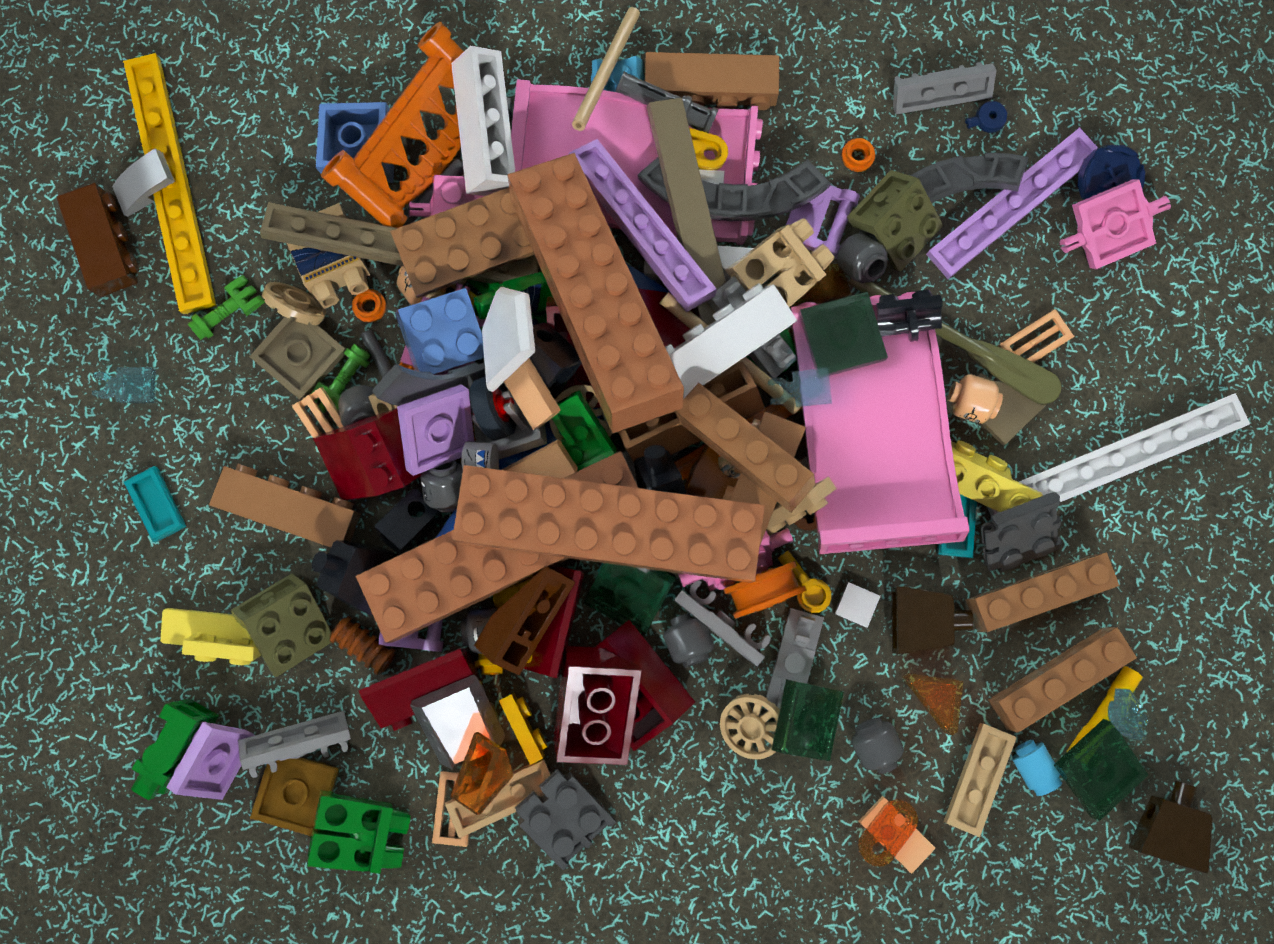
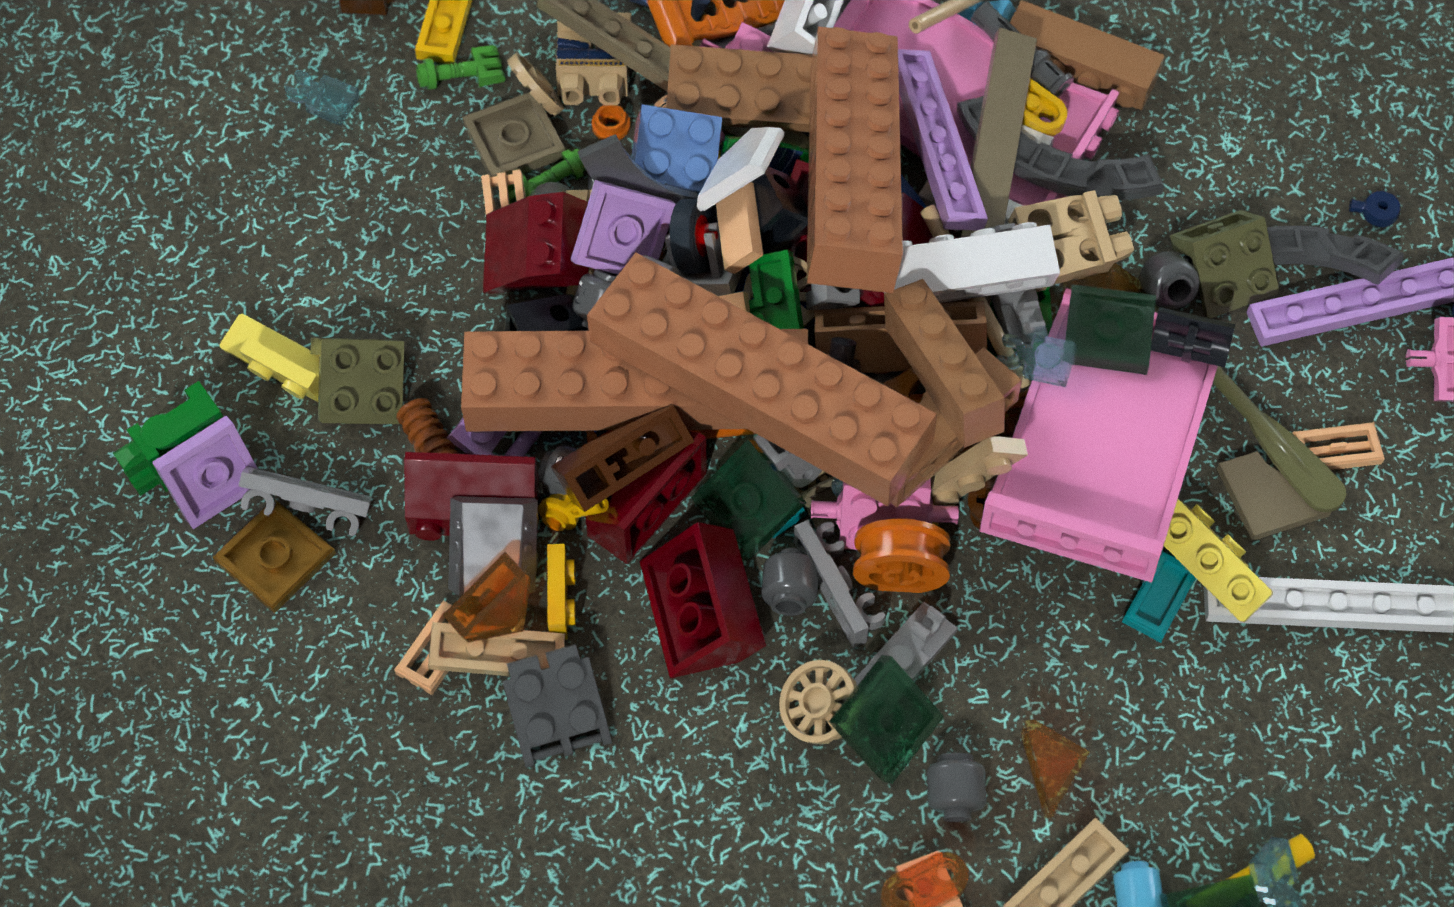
camera: 25 degrees right, 20 degrees down
(155, 504) = (288, 217): teal tile -> none
(284, 508) = (421, 271): medium nougat brick -> none
(343, 564) = (443, 352): black torso -> none
(354, 834) = (317, 615): green hips -> none
(595, 707) = (651, 592): dark red slope -> none
(815, 212) = (1139, 218): lavender plate -> none
(818, 592) = (957, 597): yellow plate -> none
(857, 605) = (1002, 632): white tile -> none
(858, 145) = (1214, 177): orange plate -> none
(925, 620) = (1075, 677): dark brown torso -> none
(943, 88) = (1337, 158): light grey plate -> none
(975, 399) = (1236, 466): light nougat head -> none
(1022, 533) = (1230, 627): dark grey plate -> none
(1042, 592) = (1229, 704): medium nougat brick -> none
(1062, 679) = (1212, 808): medium nougat brick -> none

